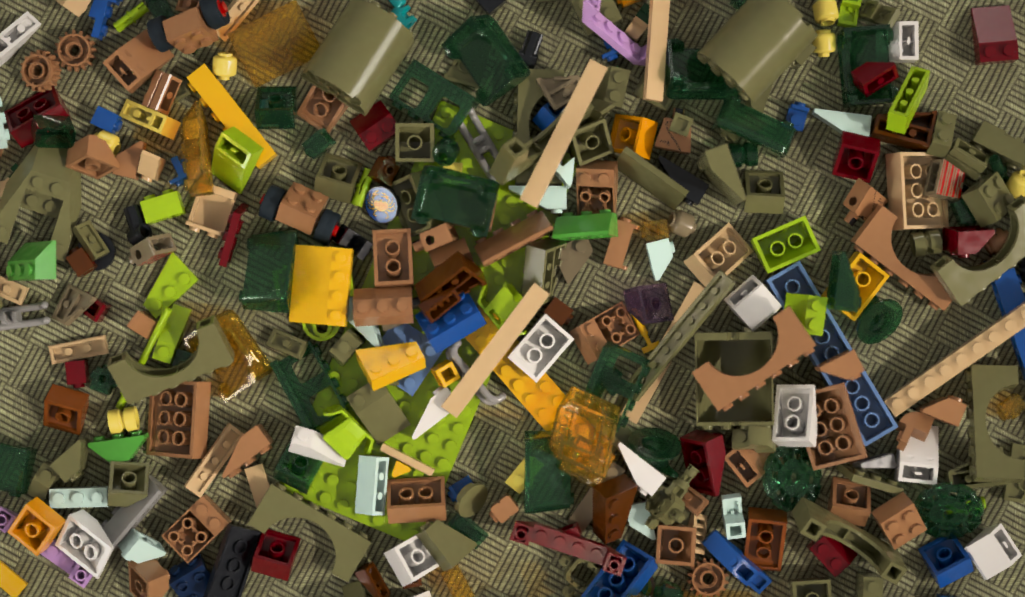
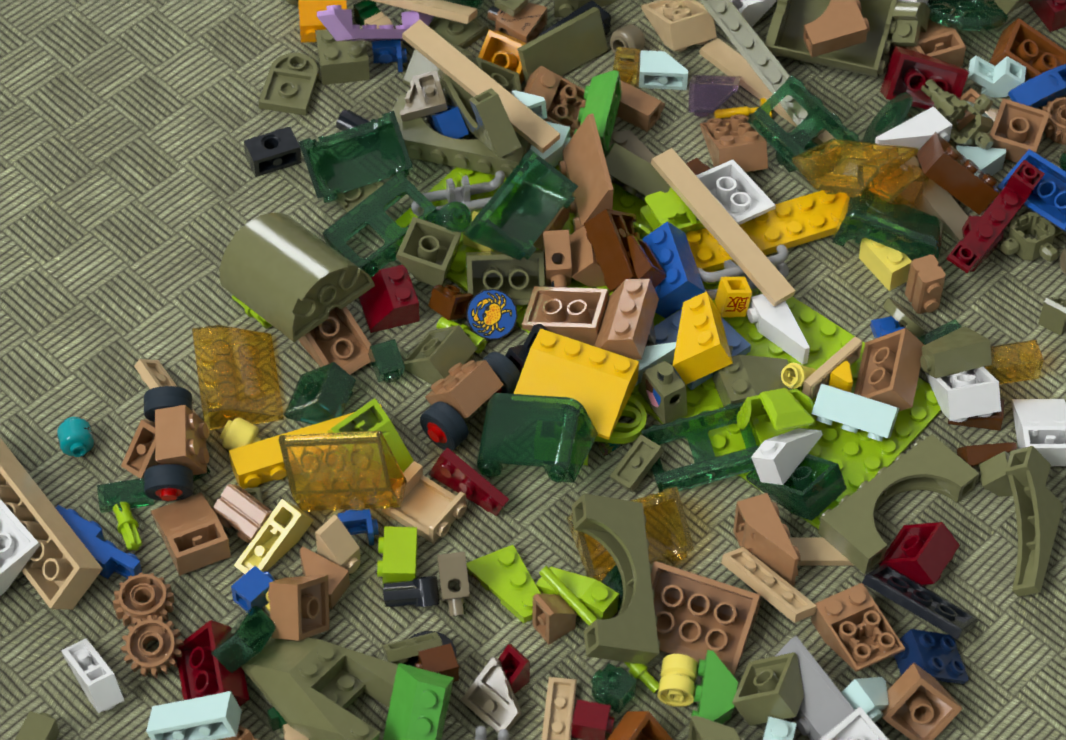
camera: 75 degrees left, 35 degrees down
(390, 437) = (795, 374): none -> light yellow cone

